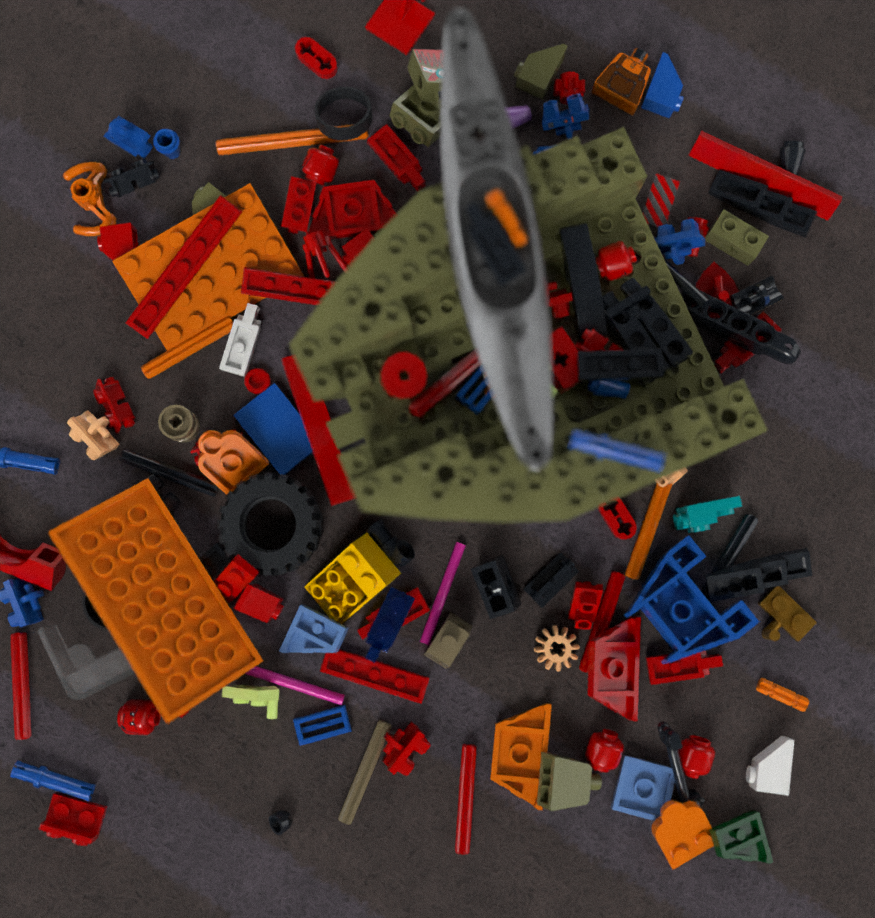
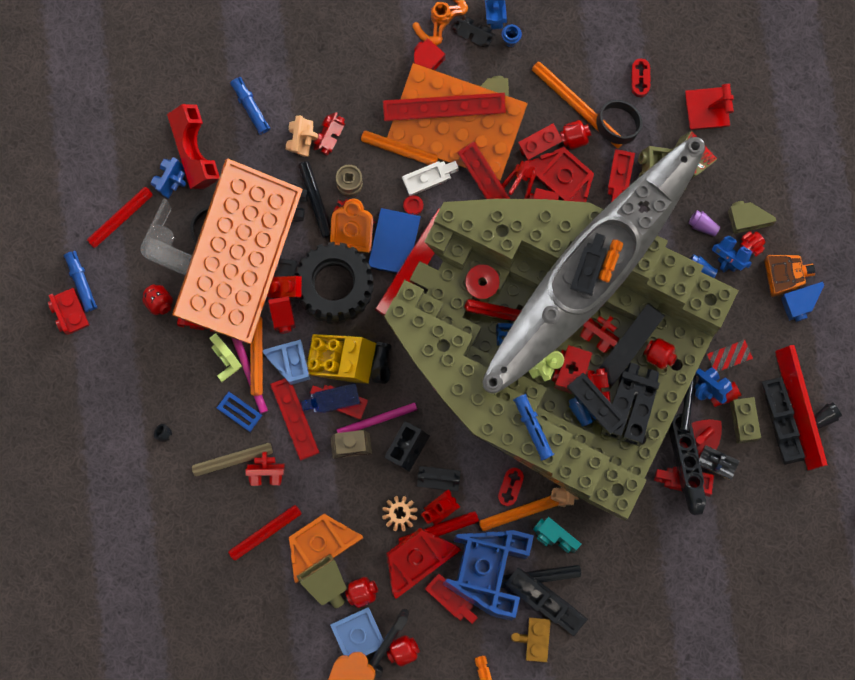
camera: 50 degrees right, 5 degrees down
(284, 665) = (256, 360): none -> orange axle

